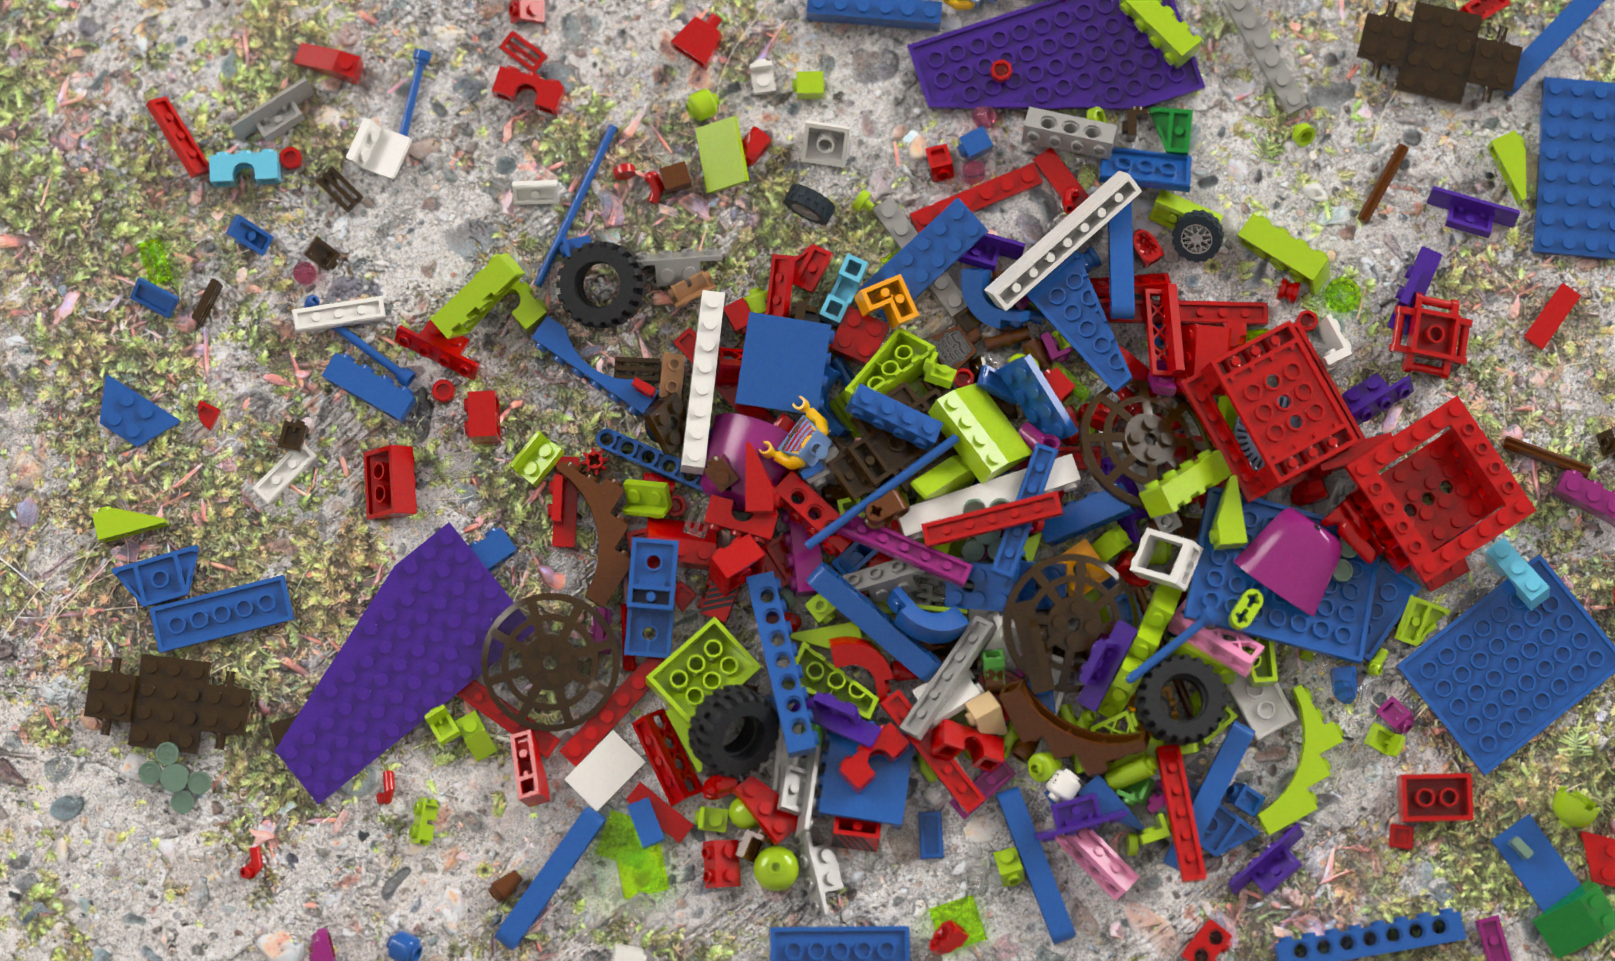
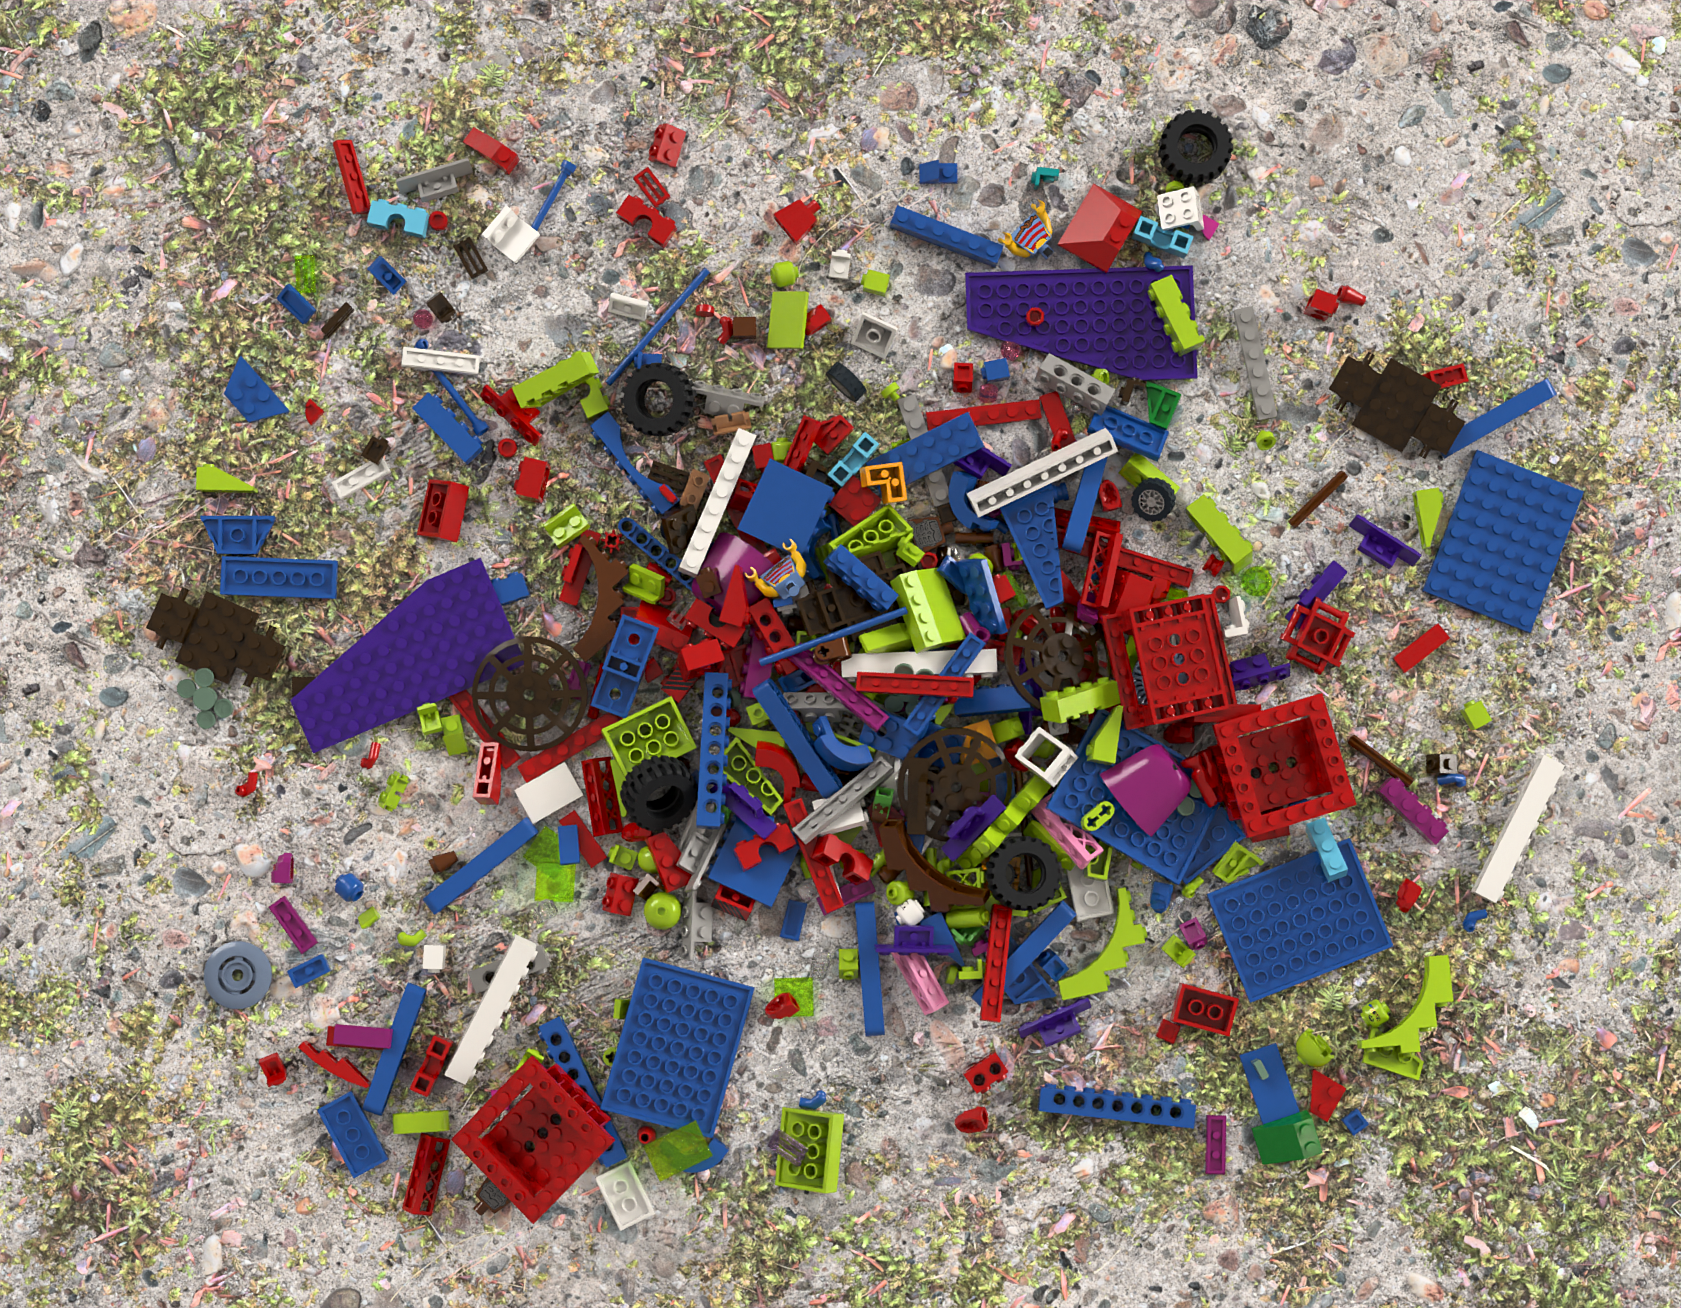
camera: 10 degrees right, 5 degrees up
(986, 714) = (864, 838): tan slope -> none
(1207, 618) = (1064, 814): blue piece -> none

